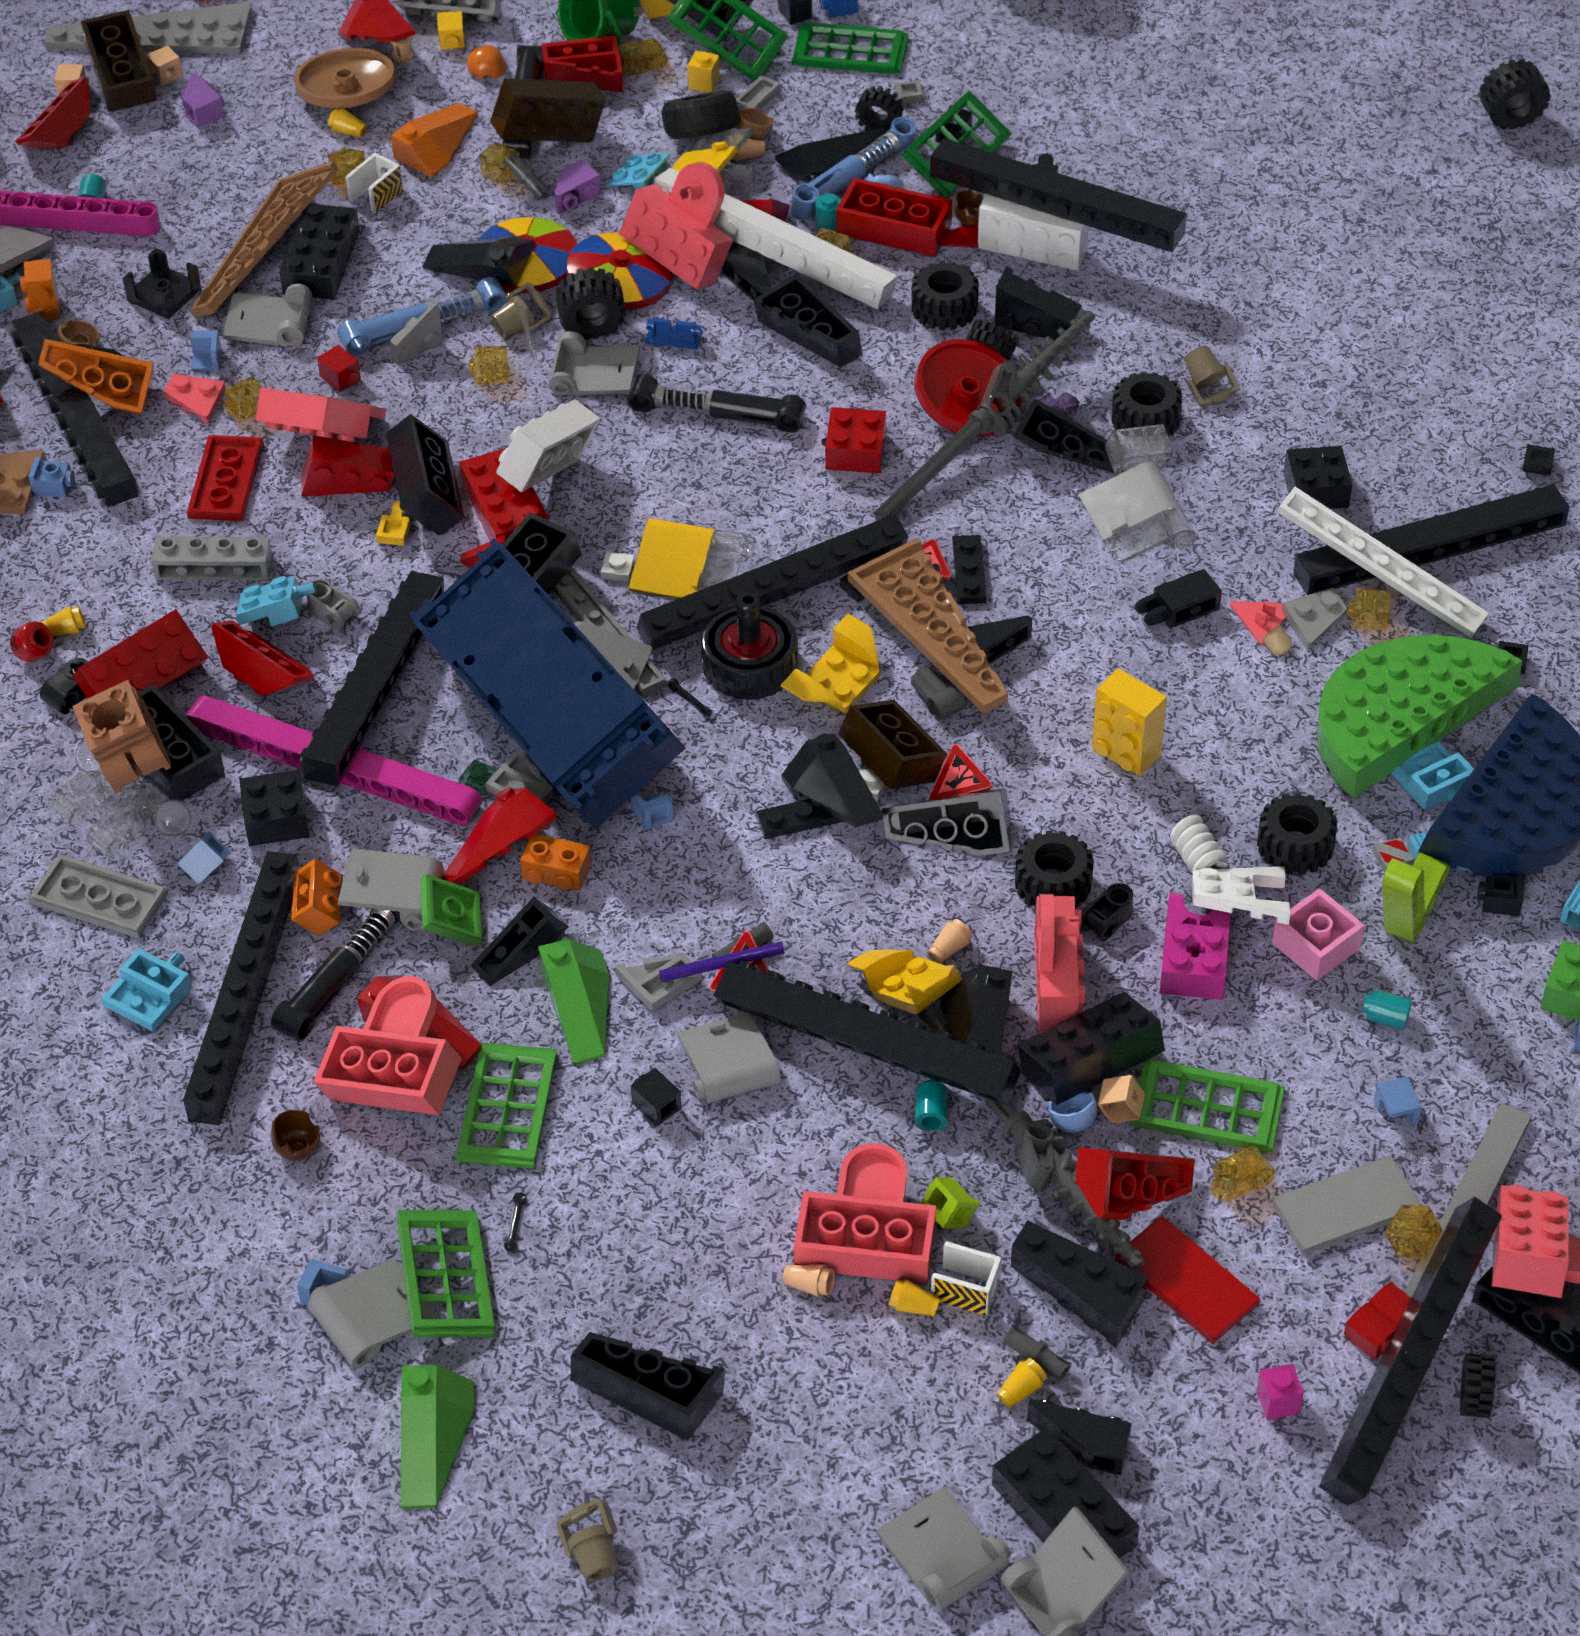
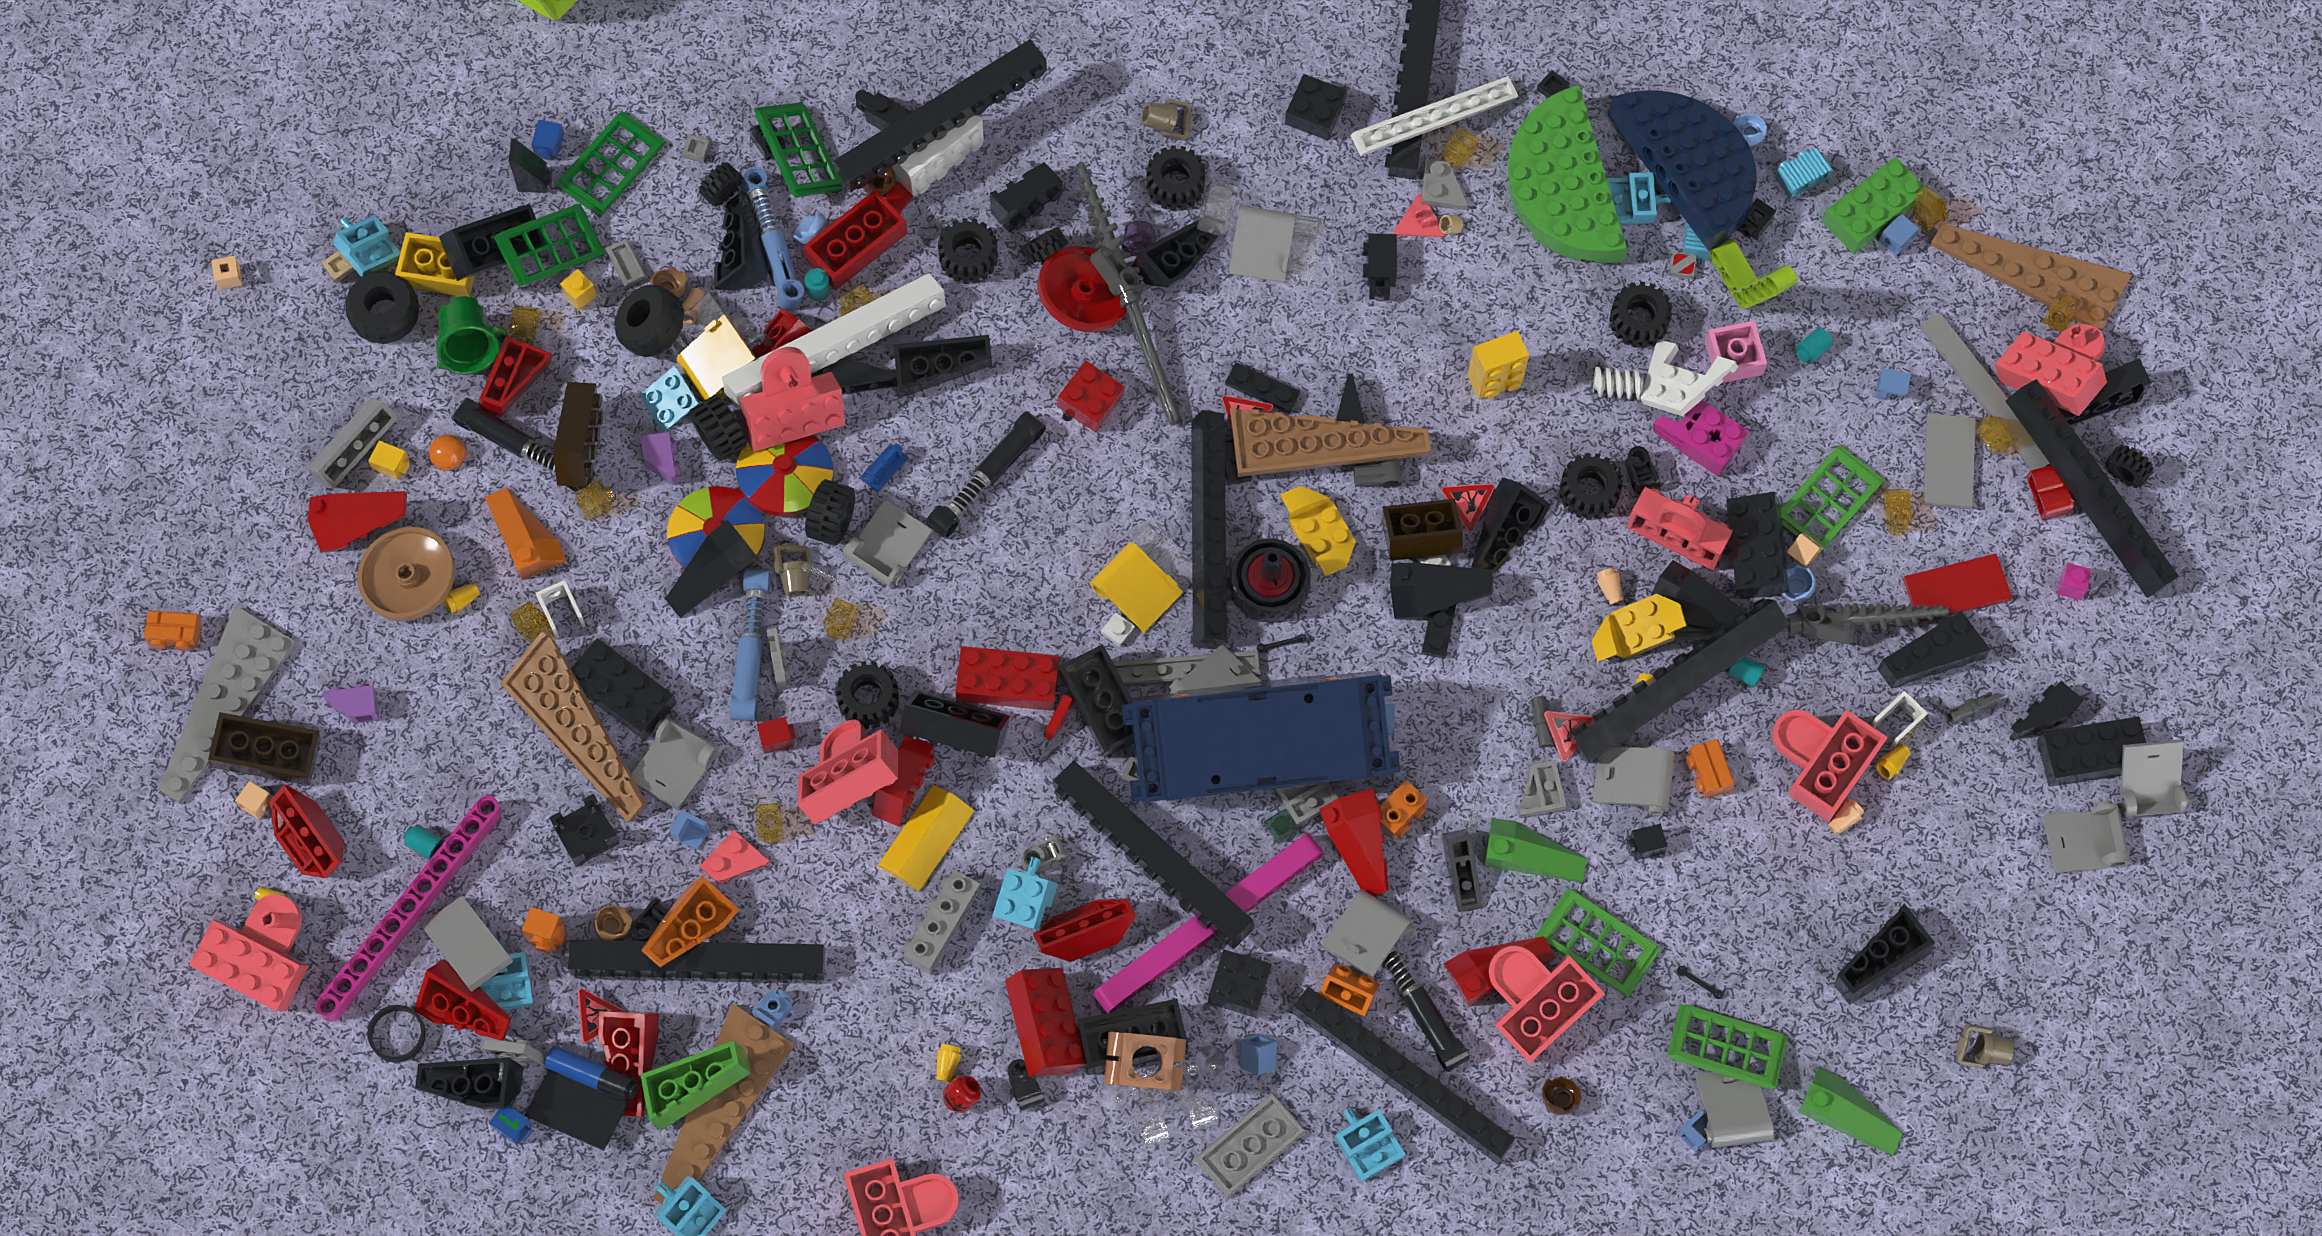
camera: 65 degrees left, 20 degrees up
(164, 65) = (283, 711): light nougat piece -> none
(225, 478) = (846, 875): red tile -> none
(299, 518) = (926, 837): none -> yellow slope
(394, 527) = (984, 772): yellow plate -> none
(426, 400) = (863, 676): none -> black tyre
(451, 910) = (1411, 901): bright green tile -> none
(525, 175) = (629, 488): dark grey pin -> none
(547, 445) = (990, 619): white brick -> none
(617, 193) = (718, 427): none -> black tyre
(721, 961) = (1562, 742): dark purple bar -> none
(784, 1120) = (1710, 769): none -> orange brick
(952, 1203) = (1832, 700): lime brick -> none
(1022, 1382) = (1989, 728): yellow cone -> none
(1130, 1182) = (1884, 584): red wedge -> none

